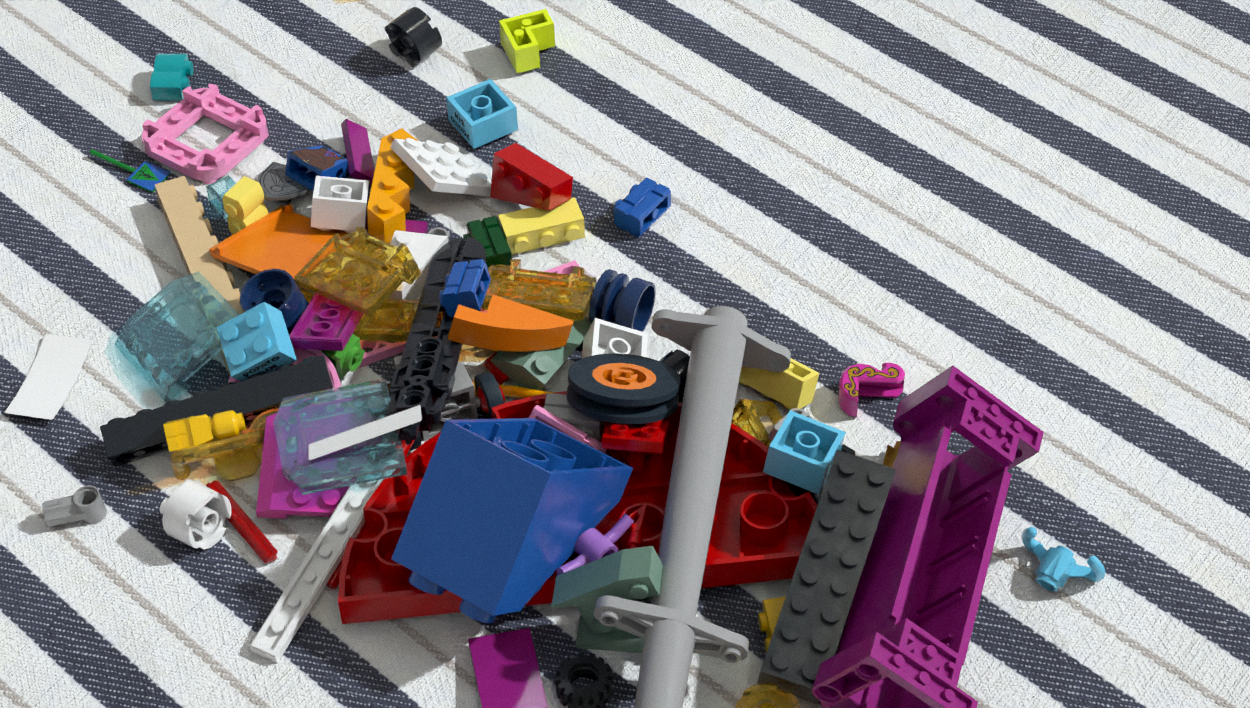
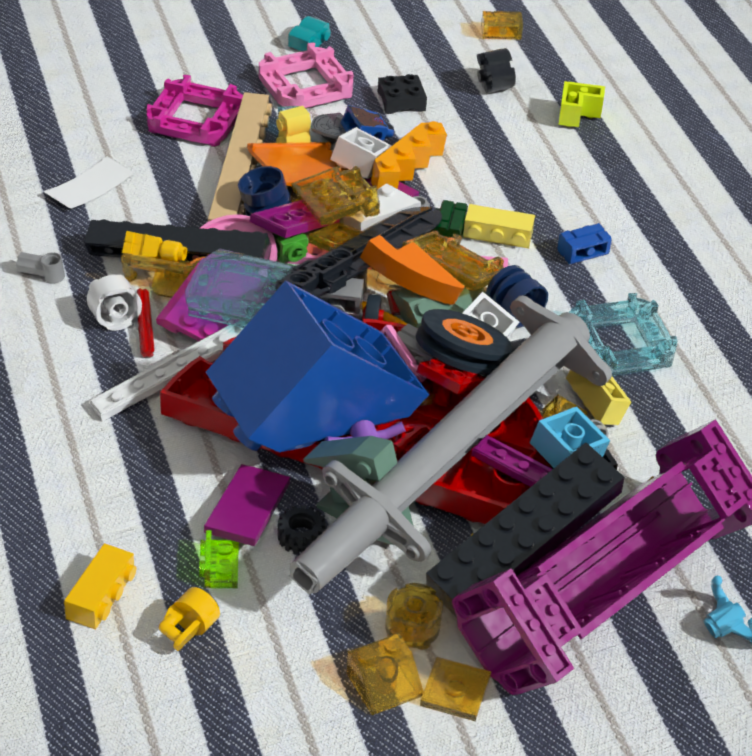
camera: 25 degrees right, 5 degrees down
(69, 233) = (212, 130): none -> dark pink plate
(144, 176) = (248, 87): piece -> none
(175, 333) = (191, 187): clear light blue wedge -> none
(256, 342) = (227, 205): medium azure brick -> none
(325, 107) = (402, 93): none -> black brick
(358, 151) = (404, 123): magenta tile -> none
(365, 432) = (244, 287): white sticker -> none
(442, 167) = (452, 158): white plate -> none
(465, 286) = (401, 229): blue brick -> none
(482, 113) = (509, 137): medium azure brick -> none
(528, 179) = (506, 187): red wedge -> none
(767, 503) = (509, 461): none -> magenta tile
(797, 293) = (660, 345): none -> clear light blue plate
(869, 381) = (665, 425): dark pink animal -> none

